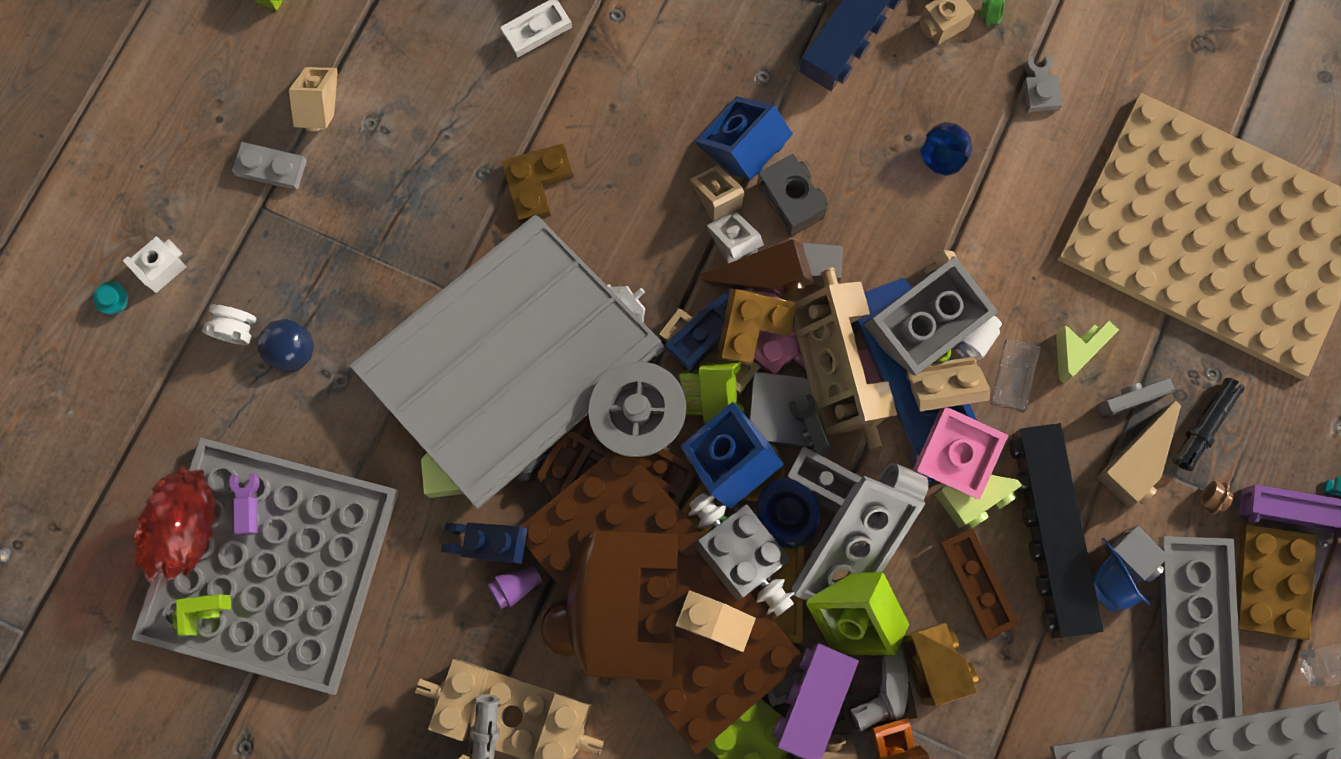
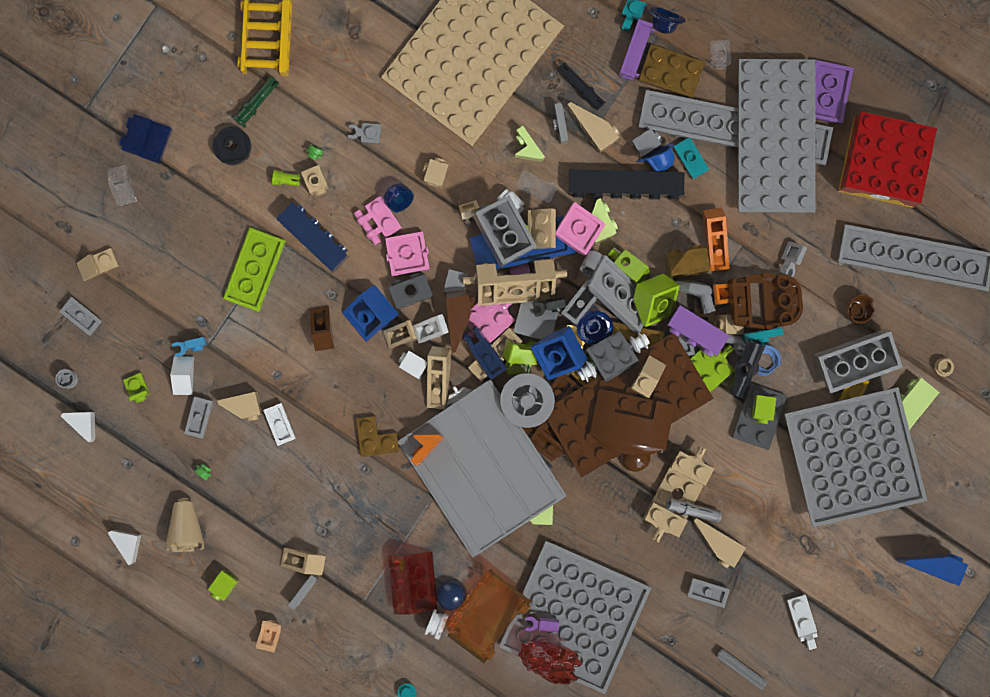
camera: 90 degrees left, 10 degrees up
(156, 263) = (397, 669): white brick -> none
(185, 64) = (269, 636): none -> light nougat bracket
(205, 607) = (594, 652): lime bracket -> none
(247, 404) = (486, 615): none -> clear orange windscreen
(263, 104) = (303, 591): none -> light grey tile
(269, 166) = (340, 593): light grey plate -> none
(297, 277) = (412, 583): none -> clear red slope
(488, 542) = (584, 493): dark blue hinge -> none
(513, 586) = (608, 483): medium lavender cone -> none
(534, 258) = (429, 443): none -> orange slope
(657, 261) = (438, 377): none -> tan slope
(669, 218) = (413, 364): none -> white brick
(703, 64) = (321, 328): none -> reddish brown slope
(746, 316) = (483, 331): pearl gold plate -> none
(854, 180) = (407, 254): none -> bright pink plate
(905, 135) = (383, 218): none -> bright pink plate
(912, 559) = (636, 270): none -> lime torso
(979, 584) = (647, 231): reddish brown plate -> none
(991, 714) = (716, 238): none -> orange slope
(1001, 203) = (435, 172): none -> tan brick
(1127, 643) = (691, 158): none -> teal plate
(1216, 497) = (622, 92): medium nougat plate -> none

